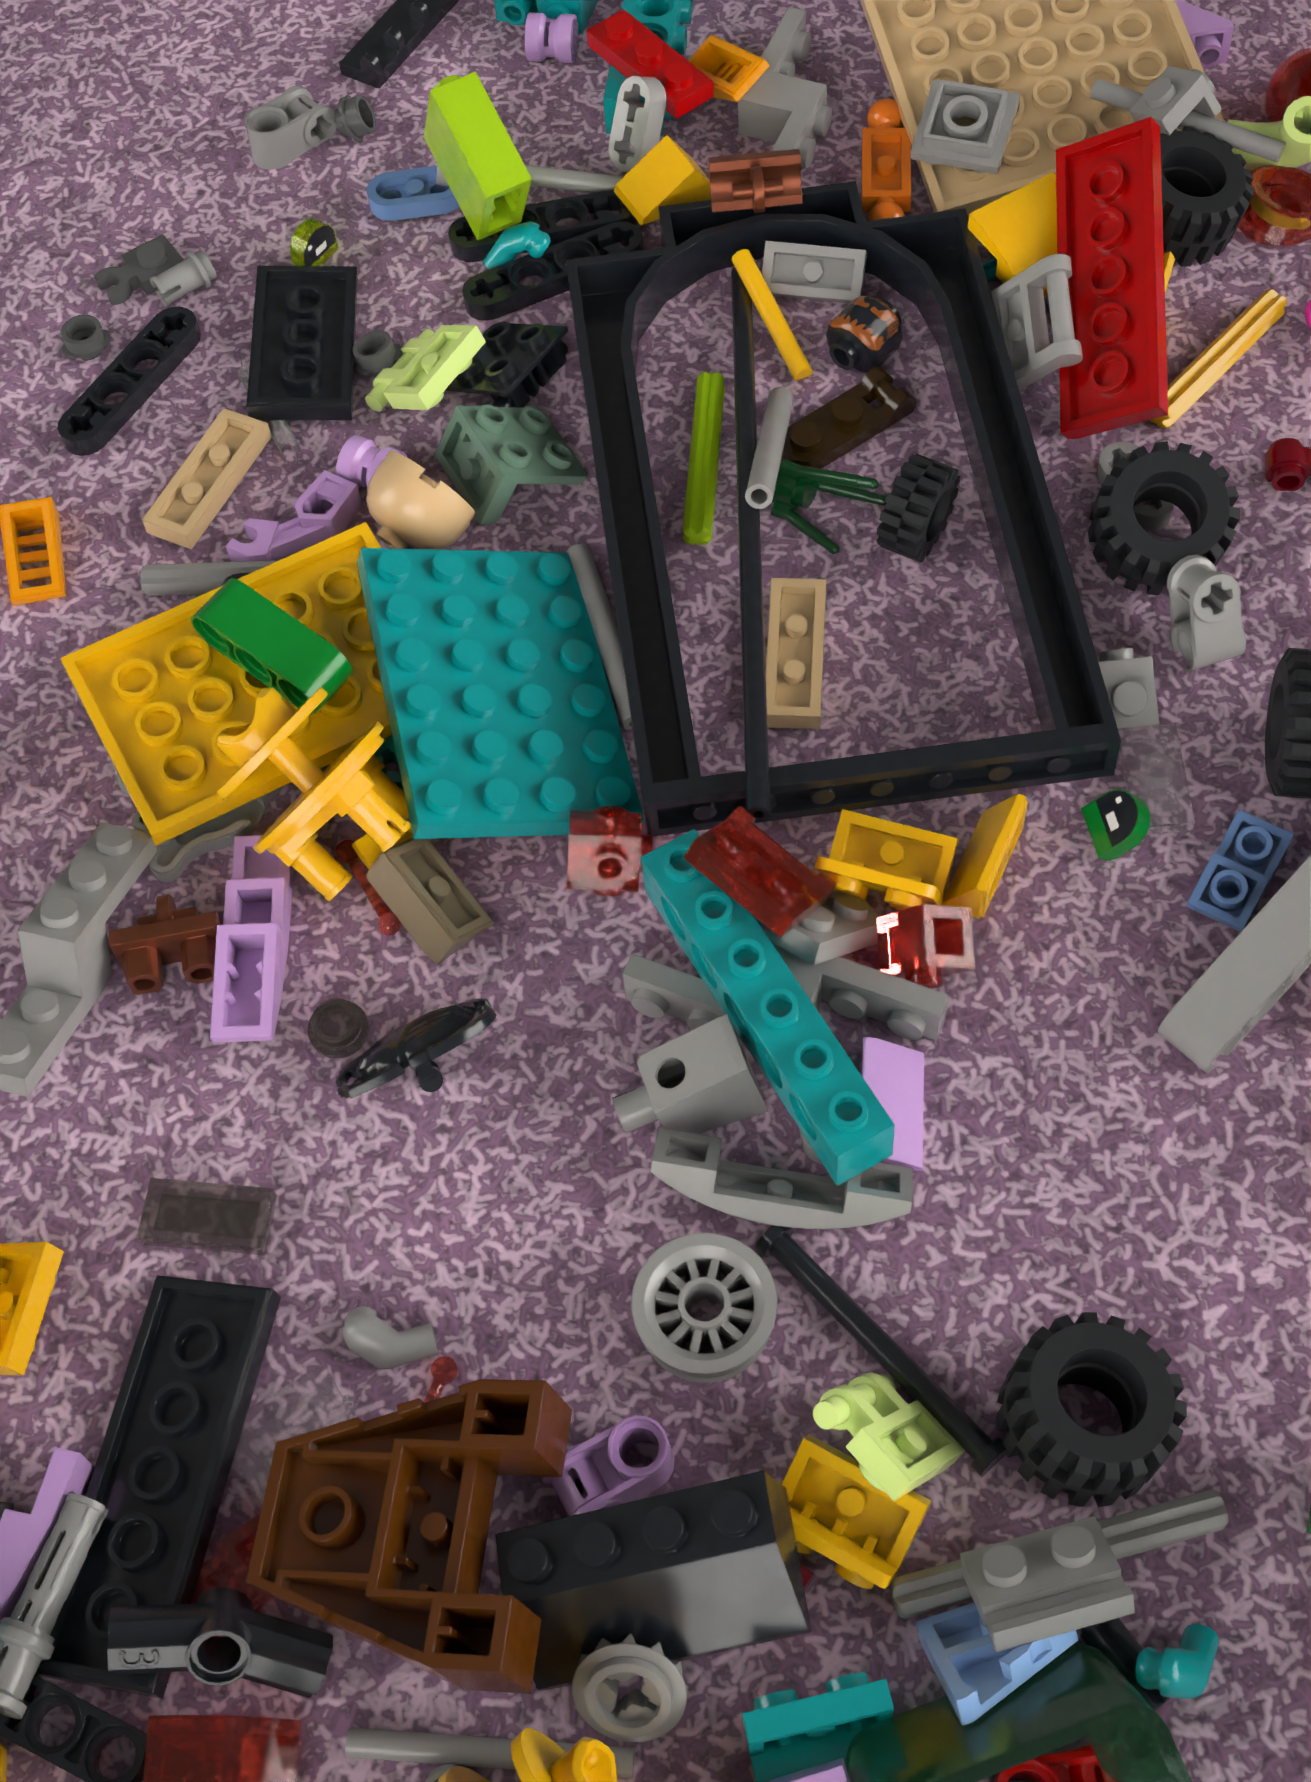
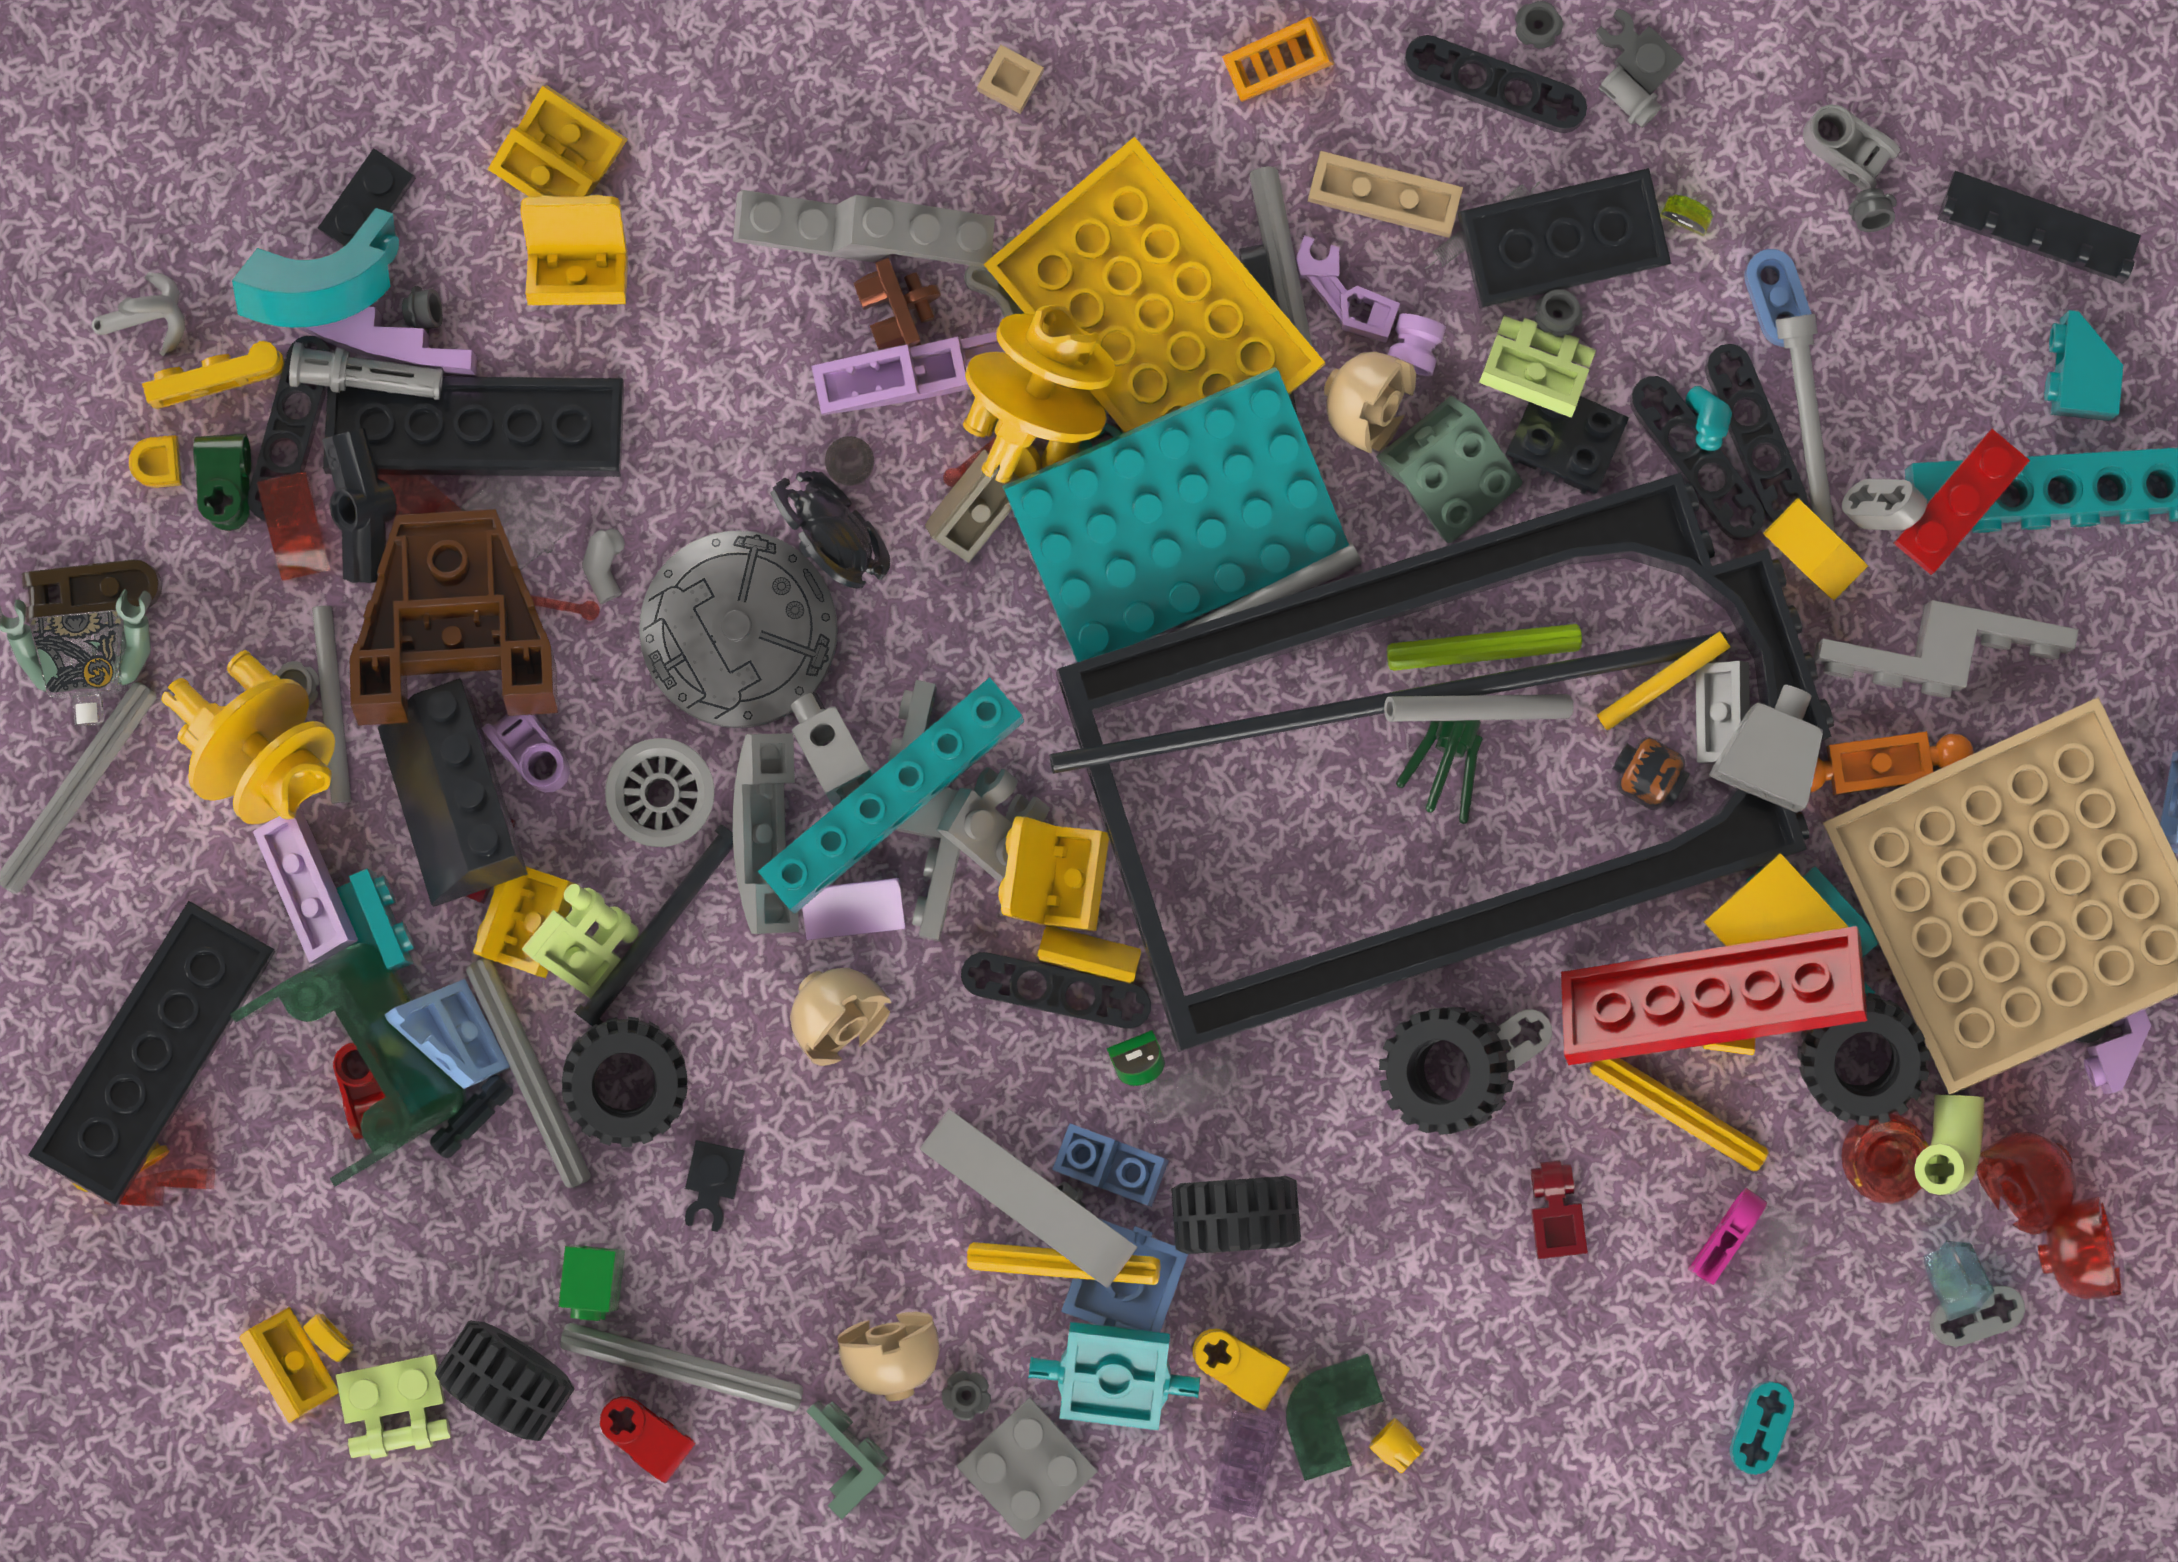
camera: 75 degrees right, 25 degrees up
(207, 1216) = (677, 402): clear smoke tile -> none
(270, 644) = (1167, 318): green beam -> none
(476, 155) = (1767, 361): lime brick -> none
(512, 1190) = (738, 628): none -> flat silver dish
(551, 37) = (2020, 386): lavender wheel -> none
(606, 850) = (1034, 643): clear red brick -> none
(642, 1713) = (377, 807): light grey gear -> none
(728, 67) = (1984, 551): light orange slope -> none
(755, 180) = (1791, 641): copper hips -> none
(759, 872) = (979, 767): clear red plate -> none
(795, 653) = (1271, 766): tan plate -> none
(847, 421) = (1545, 770): dark brown plate -> none
(867, 205) = (1773, 752): none -> light grey torso
(918, 507) = (1430, 851): black tyre -> none
(926, 943) = (978, 917): clear red brick -> none
(967, 147) = (1931, 862): light grey piece -> none
(1020, 899) = (1056, 986): none -> black beam
(1020, 1134) = (835, 1010): none -> tan cylinder
(1024, 321) = (1661, 932): light grey plate -> none
(1046, 1583) = (493, 1061): light grey plate -> none
(1130, 687) = (1275, 1052): light grey bracket -> none
(1175, 96) = (1947, 1036): light grey bracket -> none
(1180, 1670) = (455, 1162): teal arm -> none
(1204, 613) = (1353, 1113): light grey piece -> none
(1223, 1329) = (714, 1175): none -> black plate
(1234, 135) = (1946, 1052): light grey bar -> none

